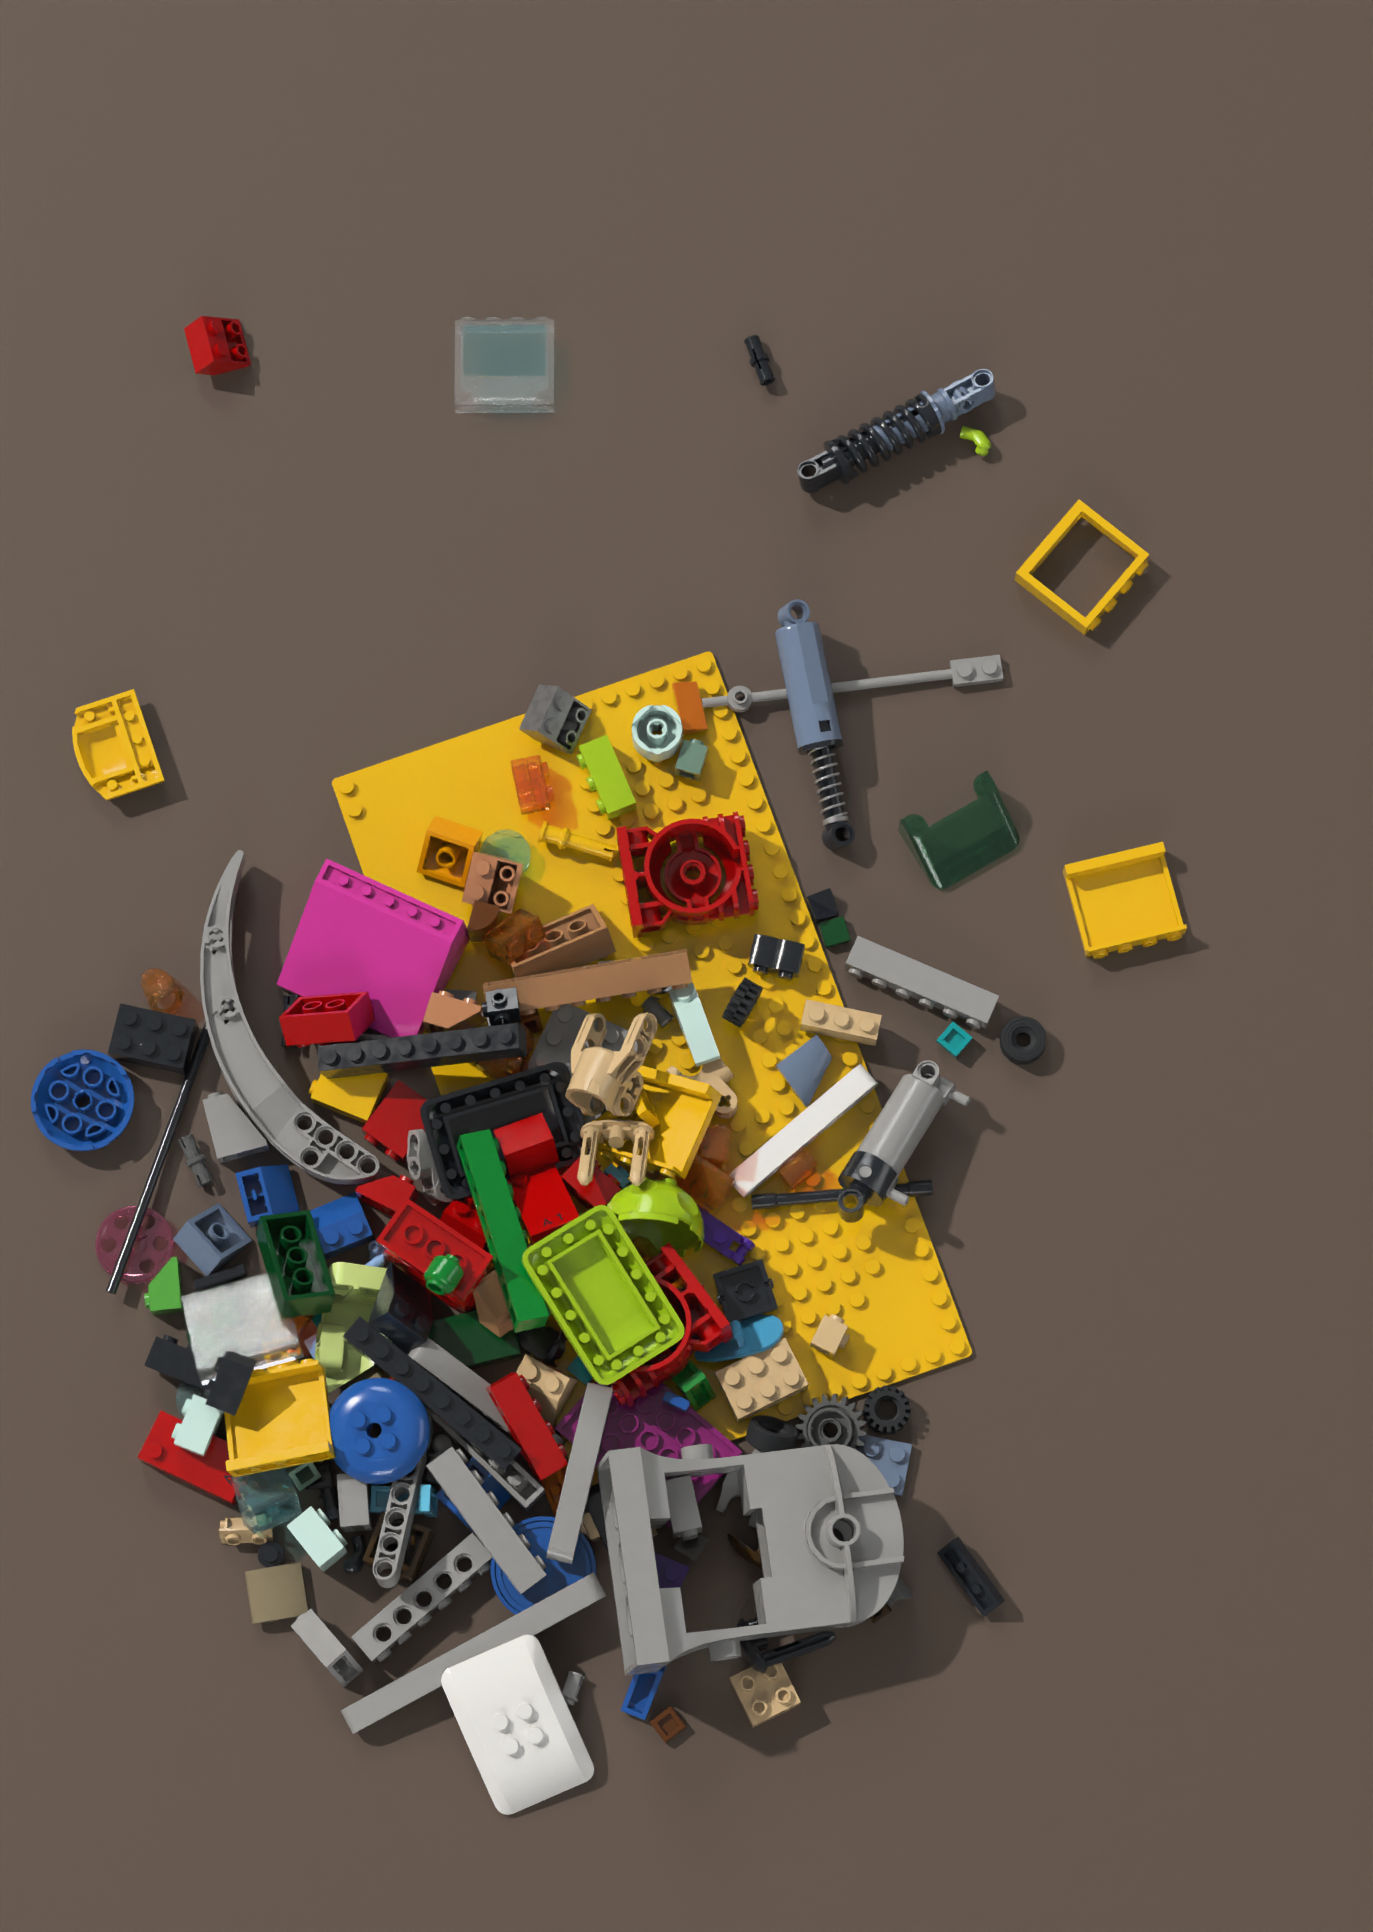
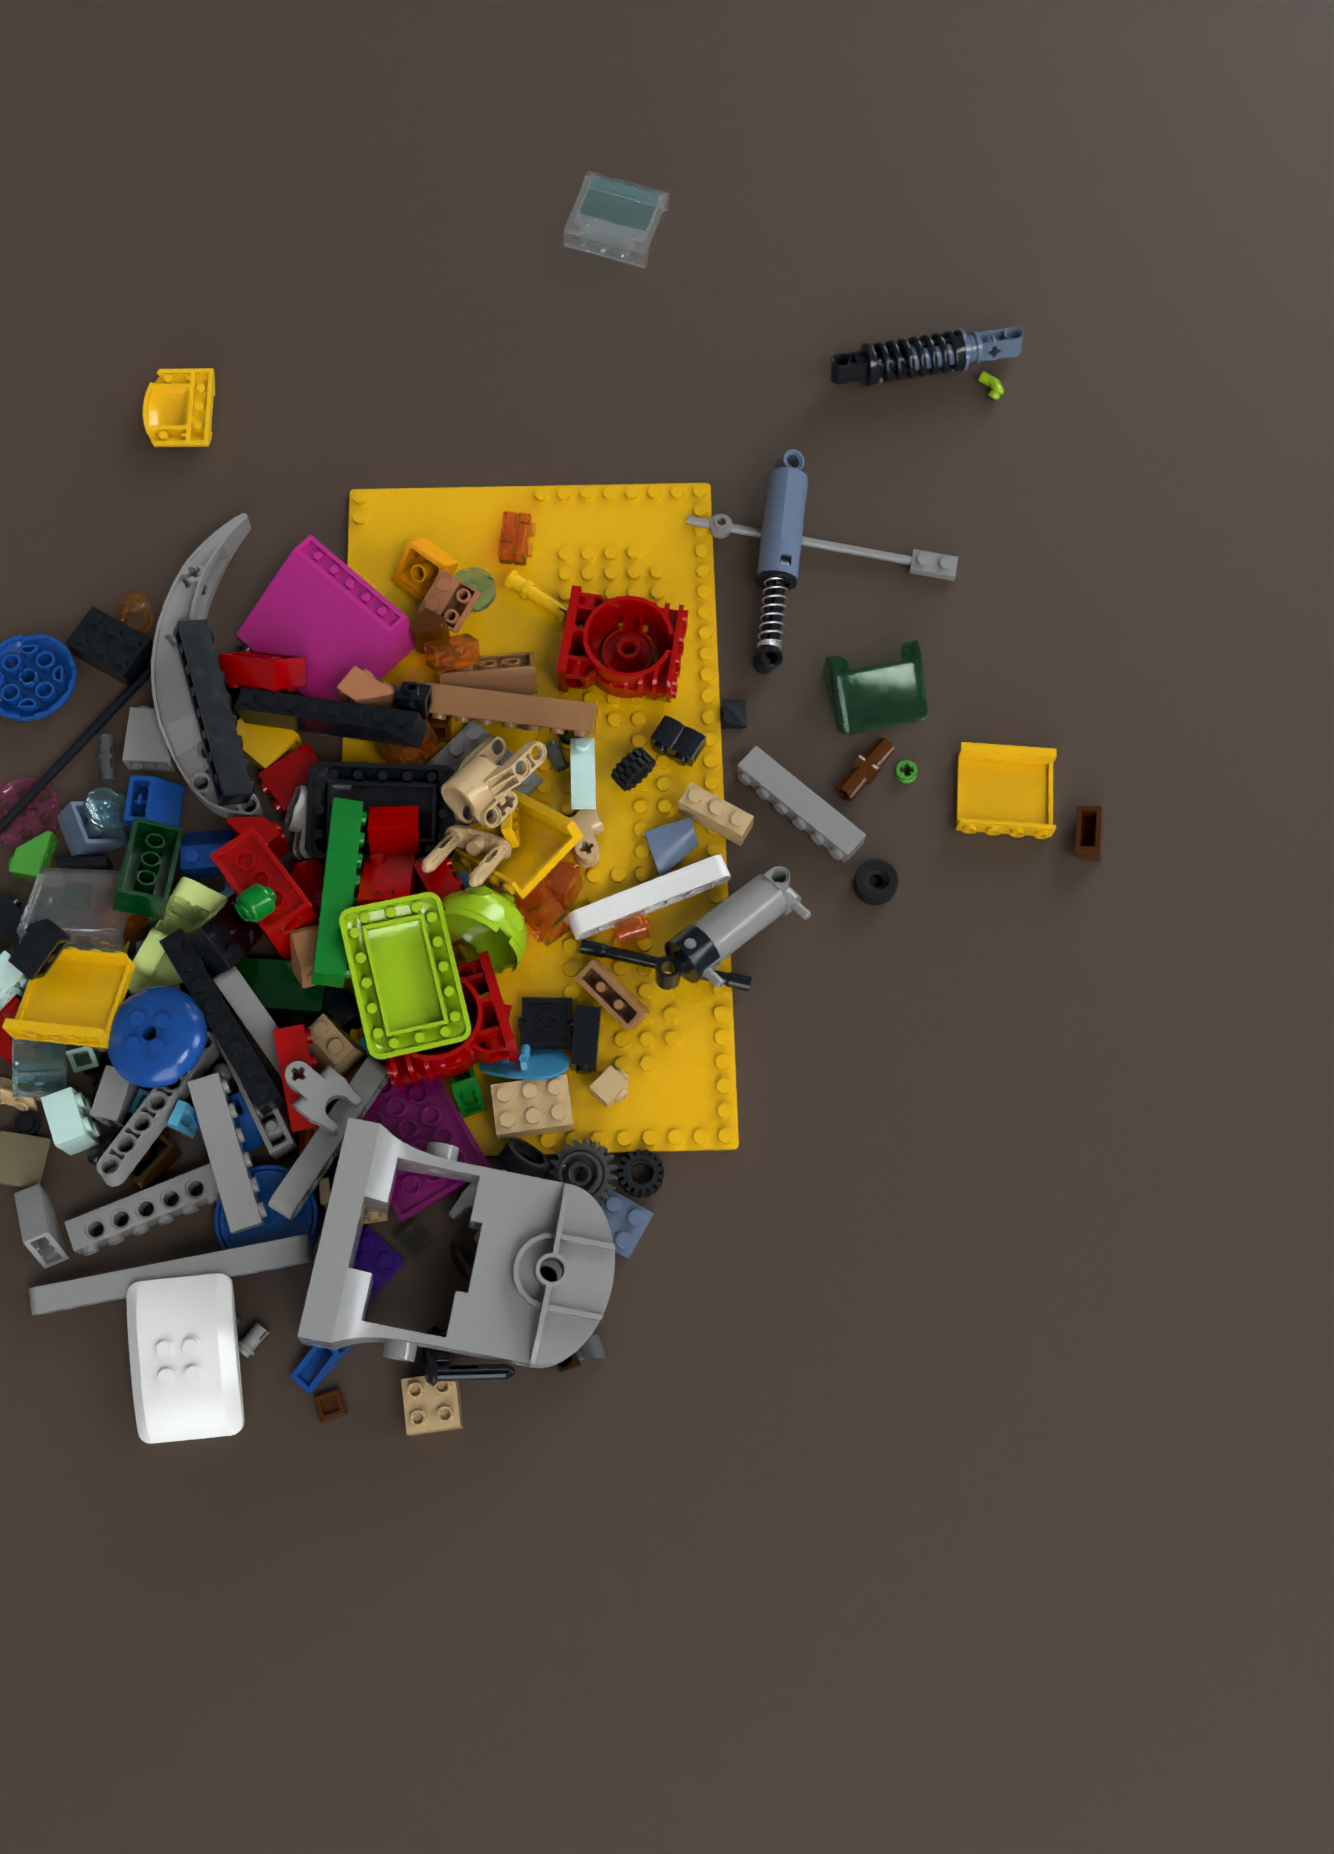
camera: 15 degrees right, 5 degrees down
(216, 345) = (389, 139): red slope -> none
(222, 1215) = (105, 809): none -> clear light blue tile
(300, 1082) = (213, 712): none -> black brick
(555, 718) = (556, 492): flat silver slope -> none
(556, 1433) = (317, 1092): none -> light grey piece
(606, 777) = (582, 551): lime brick -> none
(655, 719) = (638, 527): light aqua brick -> none
(676, 1402) = (444, 1100): blue tile -> none
(683, 1508) = (412, 1200): light grey piece -> none
(689, 707) = (674, 518): orange slope -> none
(691, 759) = (660, 559): sand green brick -> none
(721, 1237) = (543, 968): dark purple plate -> none
(759, 360) = (829, 274): black pin -> none
(789, 1296) = (585, 1039): none -> black brick
(802, 1243) = (612, 995): none -> medium nougat brick
(834, 932) = (737, 740): dark green tile -> none
(954, 1039) = (813, 862): teal plate -> none
(971, 1576) = (667, 1357): black plate -> none
(975, 923) = (864, 769): none -> reddish brown piece
(1021, 904) = (901, 775): none -> bright green bush
(1108, 602) = (1063, 463): yellow window -> none
(1221, 919) = (1089, 832): none -> reddish brown brick

